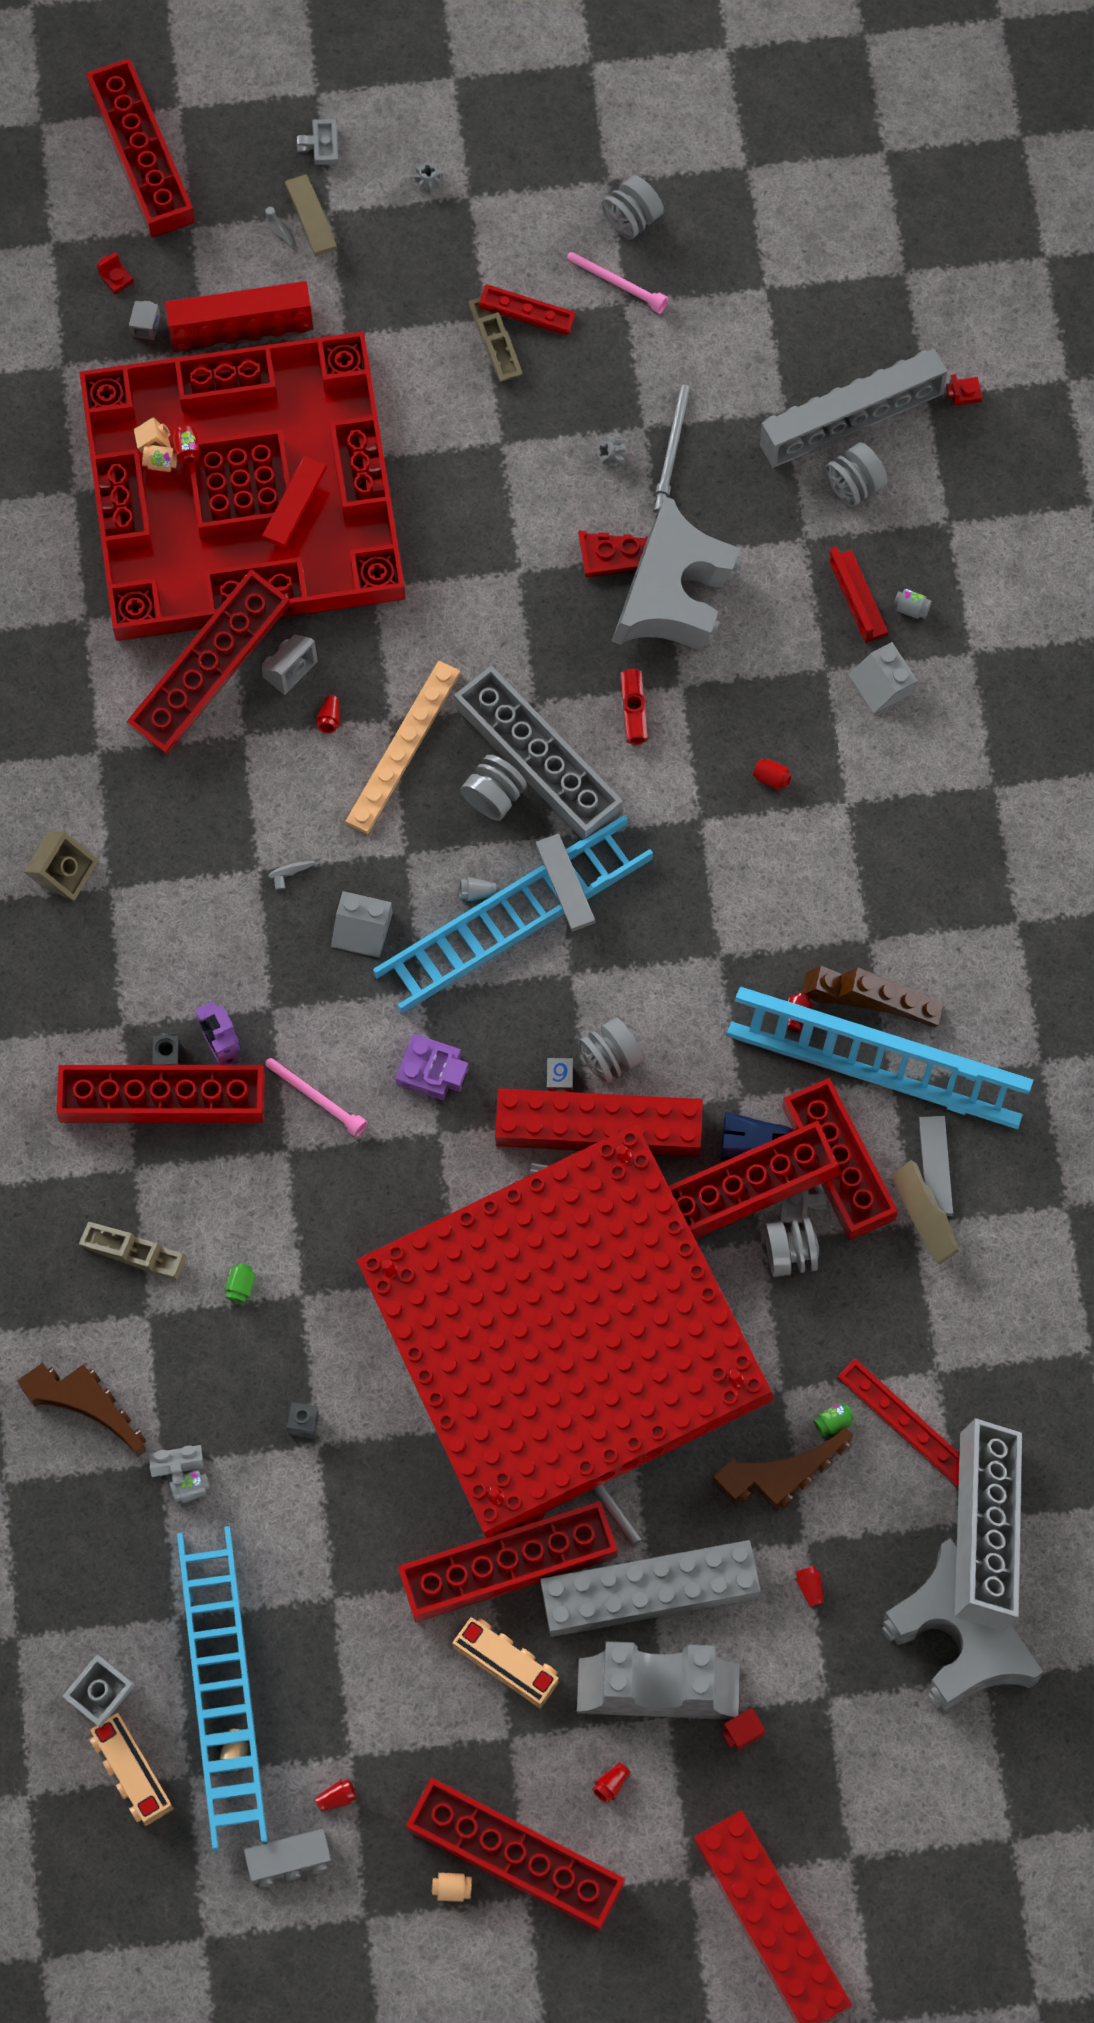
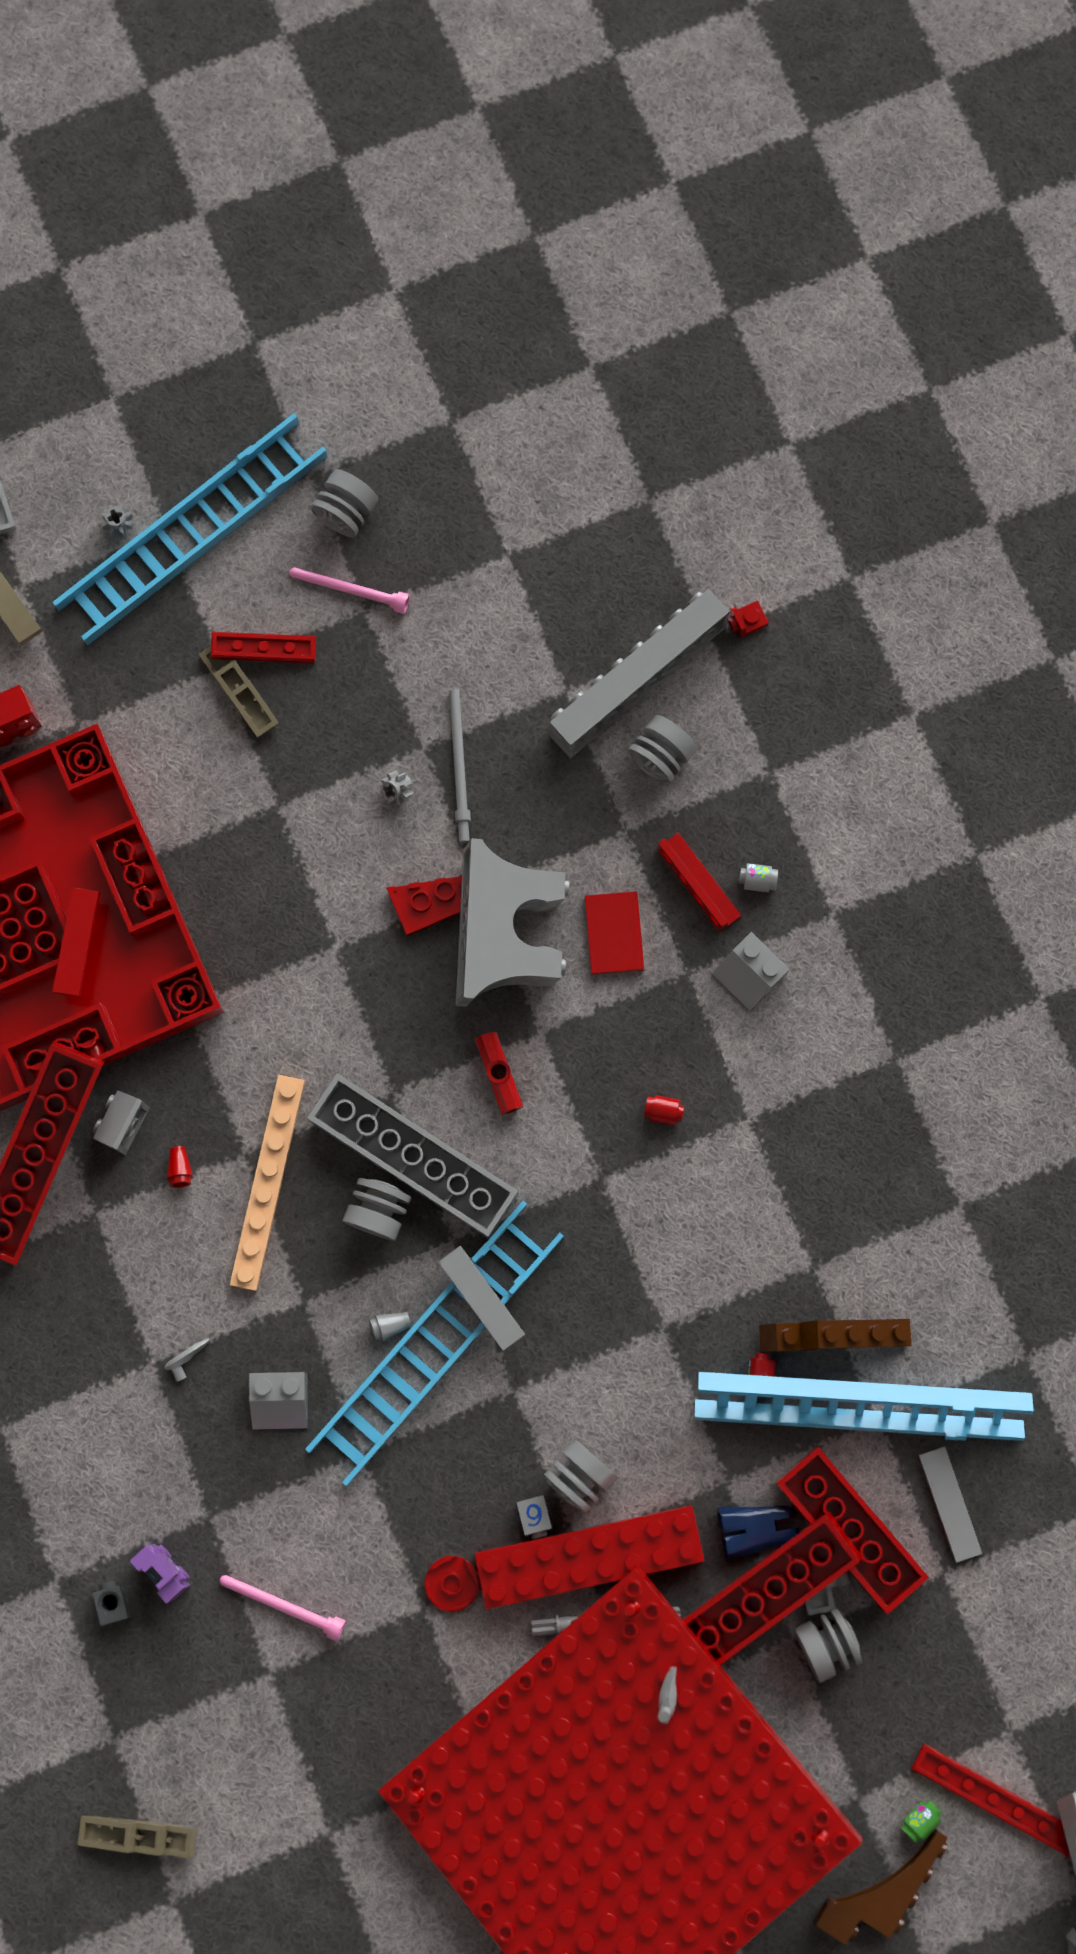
camera: 15 degrees left, 10 degrees up
(161, 1094) = (118, 1655): red brick -> none
(239, 1283) = (260, 1842): bright green brick -> none
(431, 1068) = (396, 1541): medium lavender piece -> none
(477, 1118) = (457, 1589): none -> red tile
(482, 183) = (204, 545): none -> medium azure ladder
(635, 1230) = (667, 1696): none -> light grey bar
(770, 619) = (614, 933): none -> red tile
(925, 1213) = (953, 1563): dark tan slope -> none

